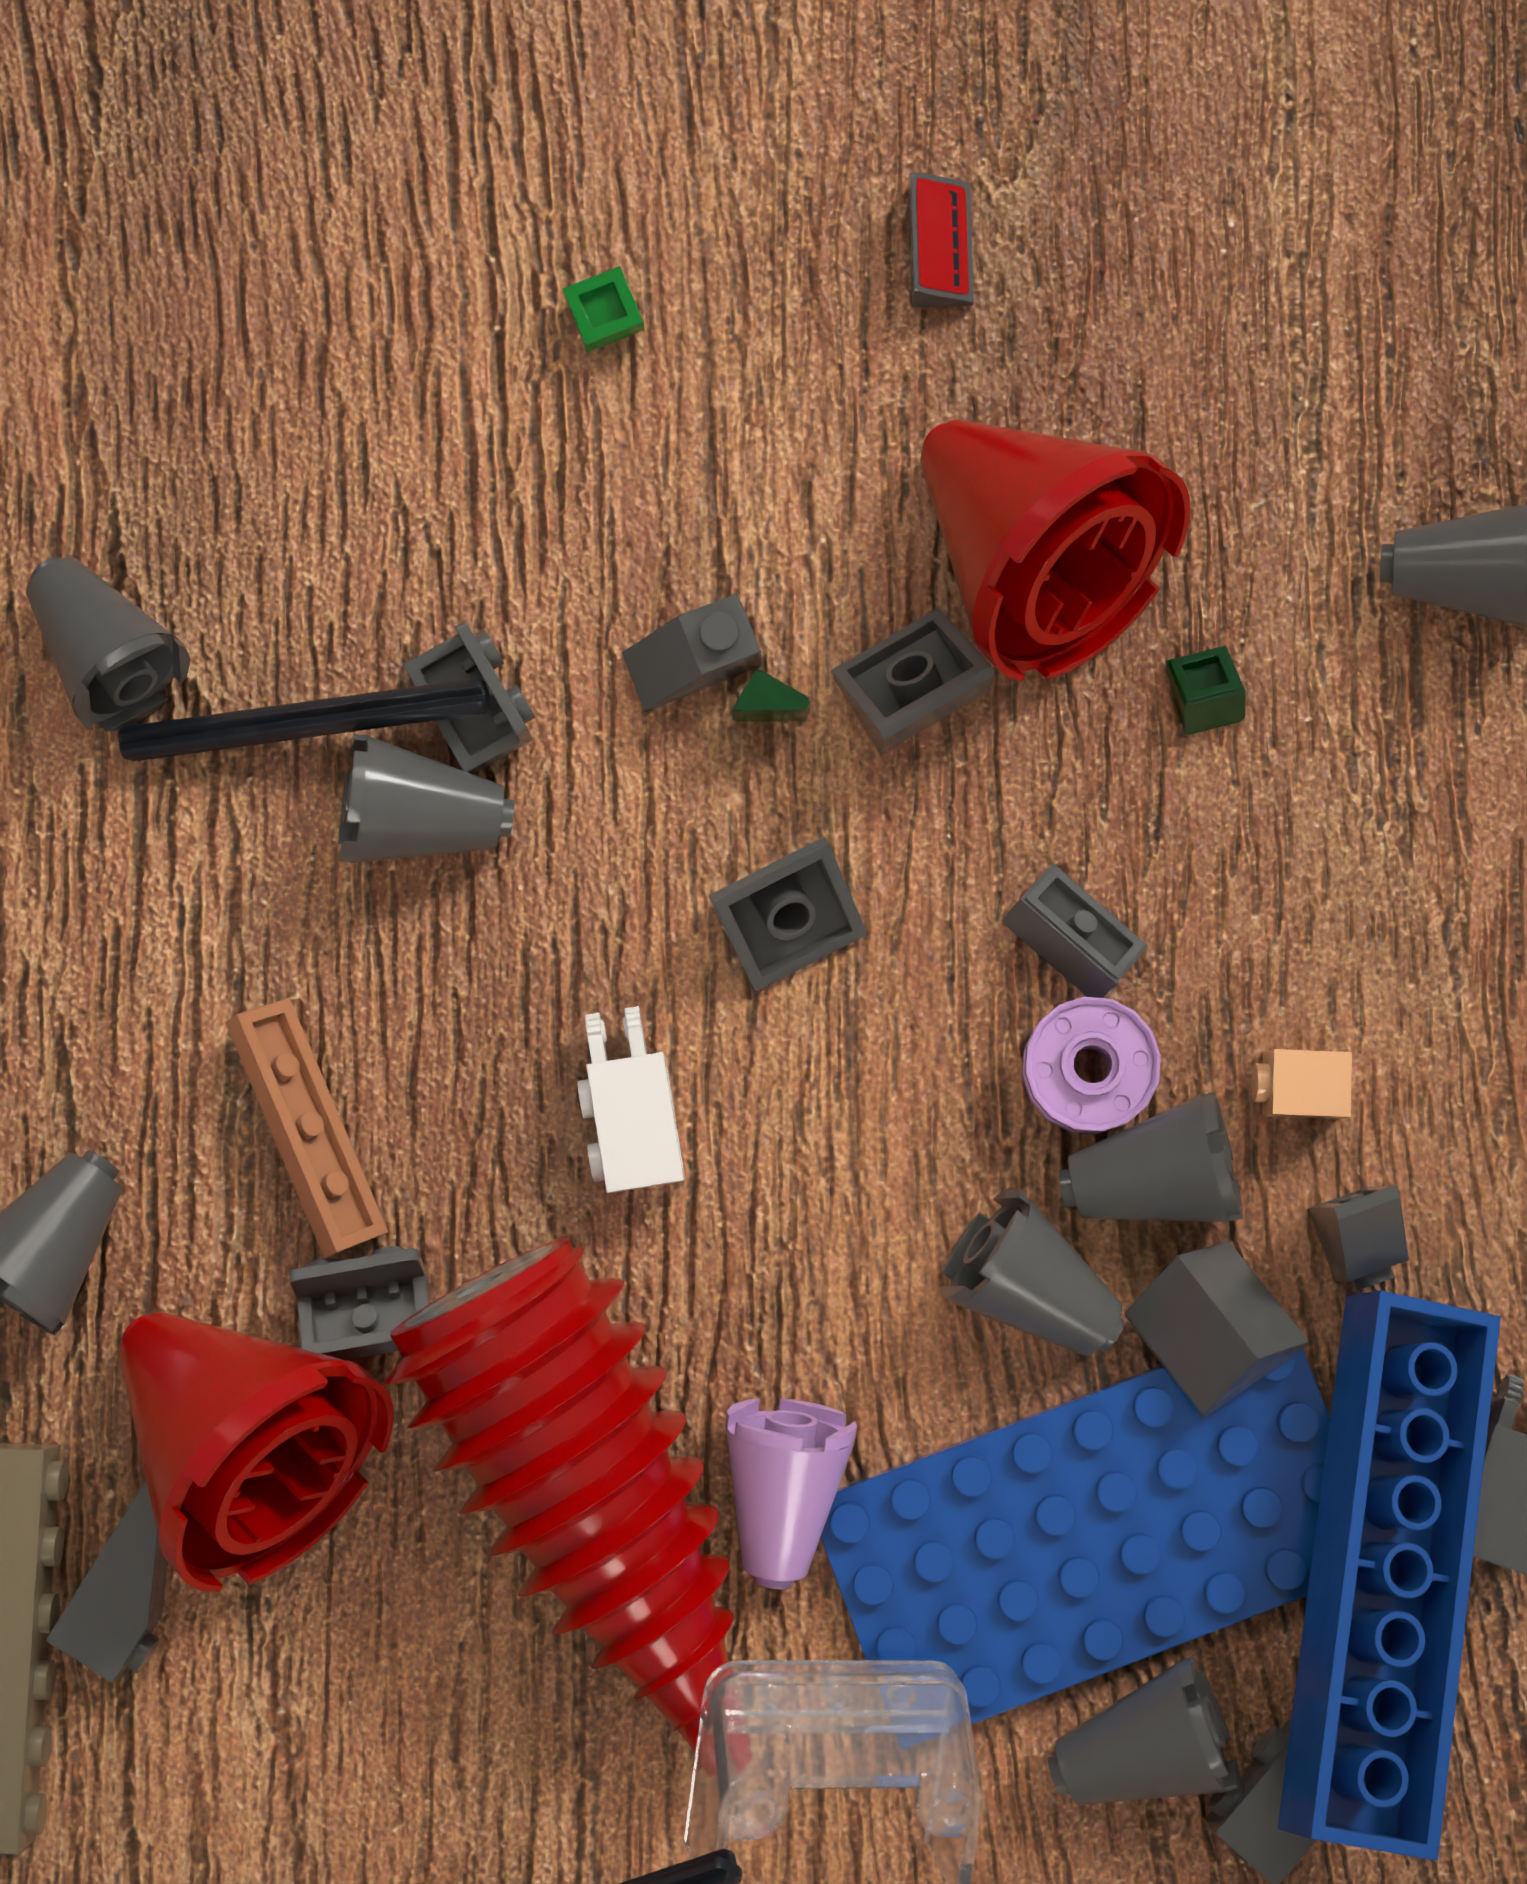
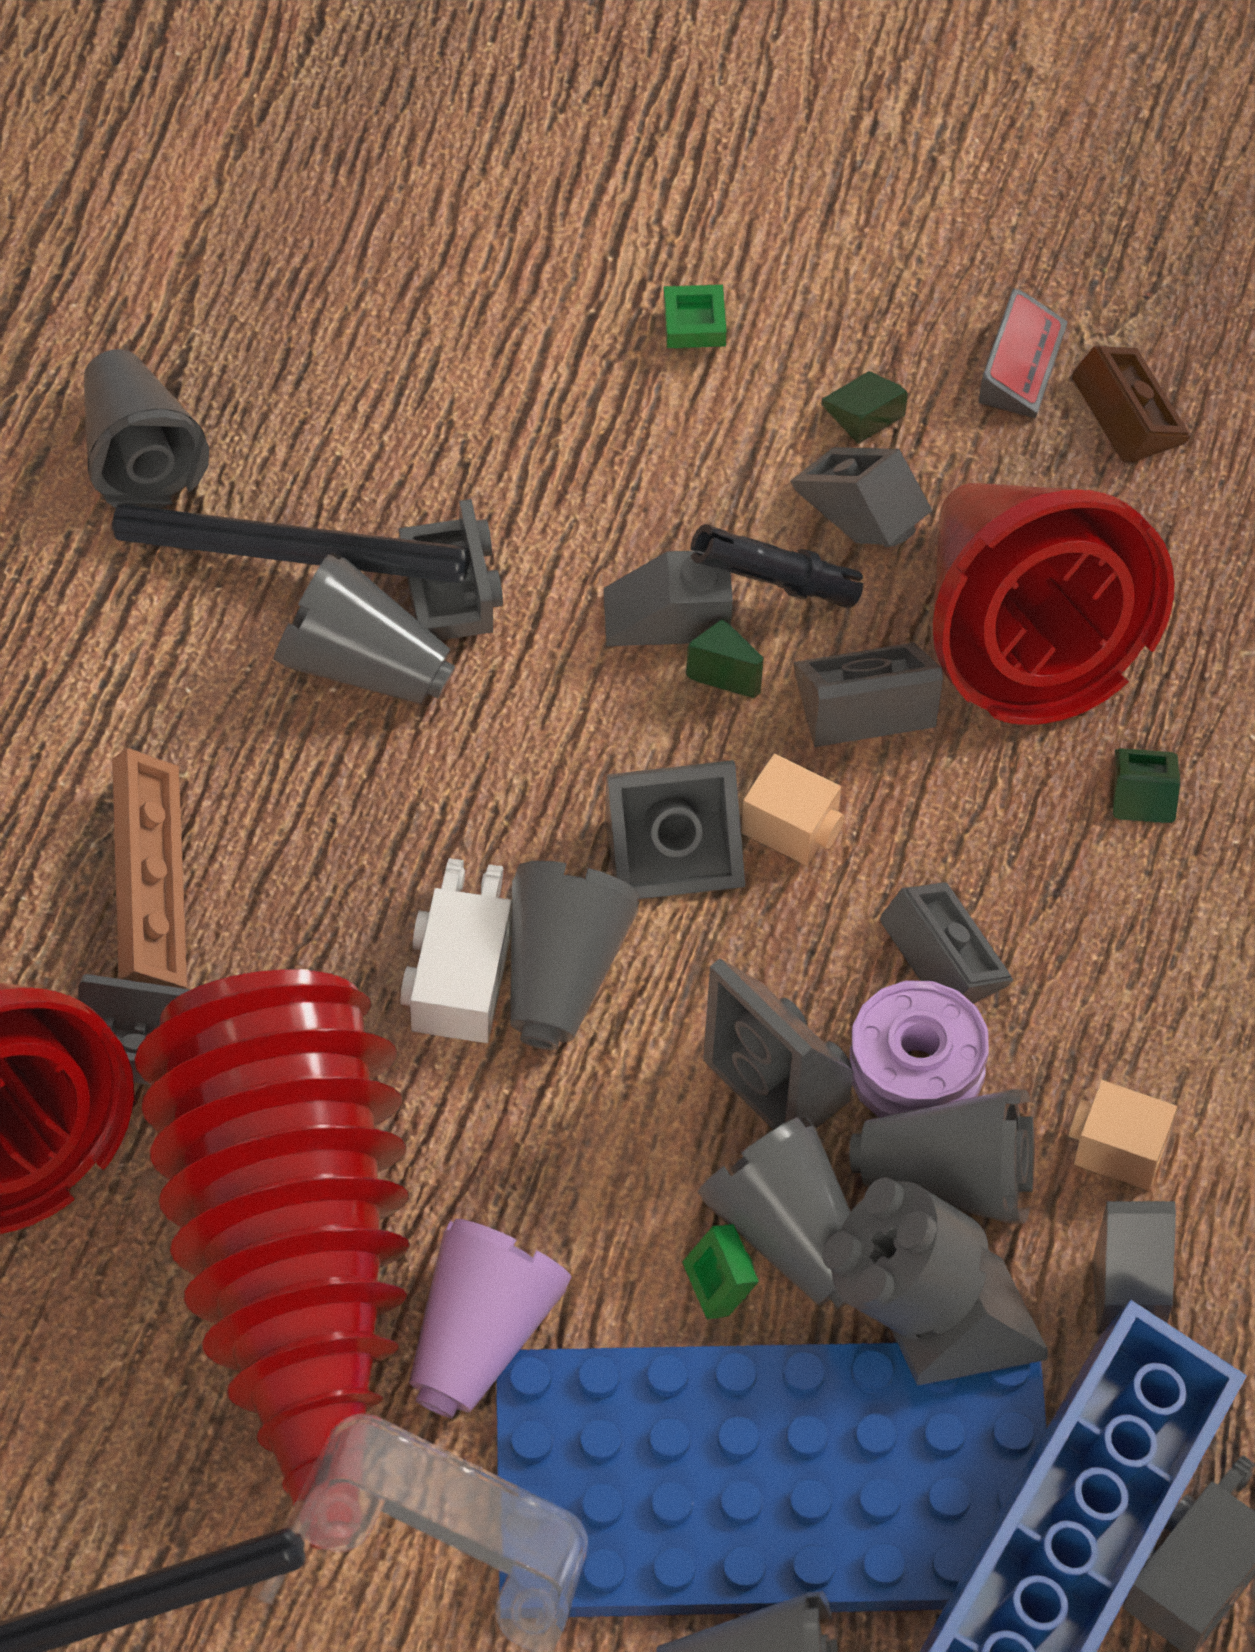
camera: 15 degrees right, 25 degrees down
(726, 1081) = (562, 946): none -> dark grey cone
(803, 351) = (866, 405): none -> dark green slope
(809, 587) = (797, 573): none -> black pin
(838, 463) = (865, 493): none -> dark grey slope
(890, 846) = (792, 810): none -> light nougat brick
(968, 1124) = (770, 1053): none -> dark grey slope
(985, 1356) = (720, 1271): none -> green plate
(1059, 258) = (1128, 402): none -> reddish brown slope
(1165, 1321) = (907, 1259): none -> dark grey brick

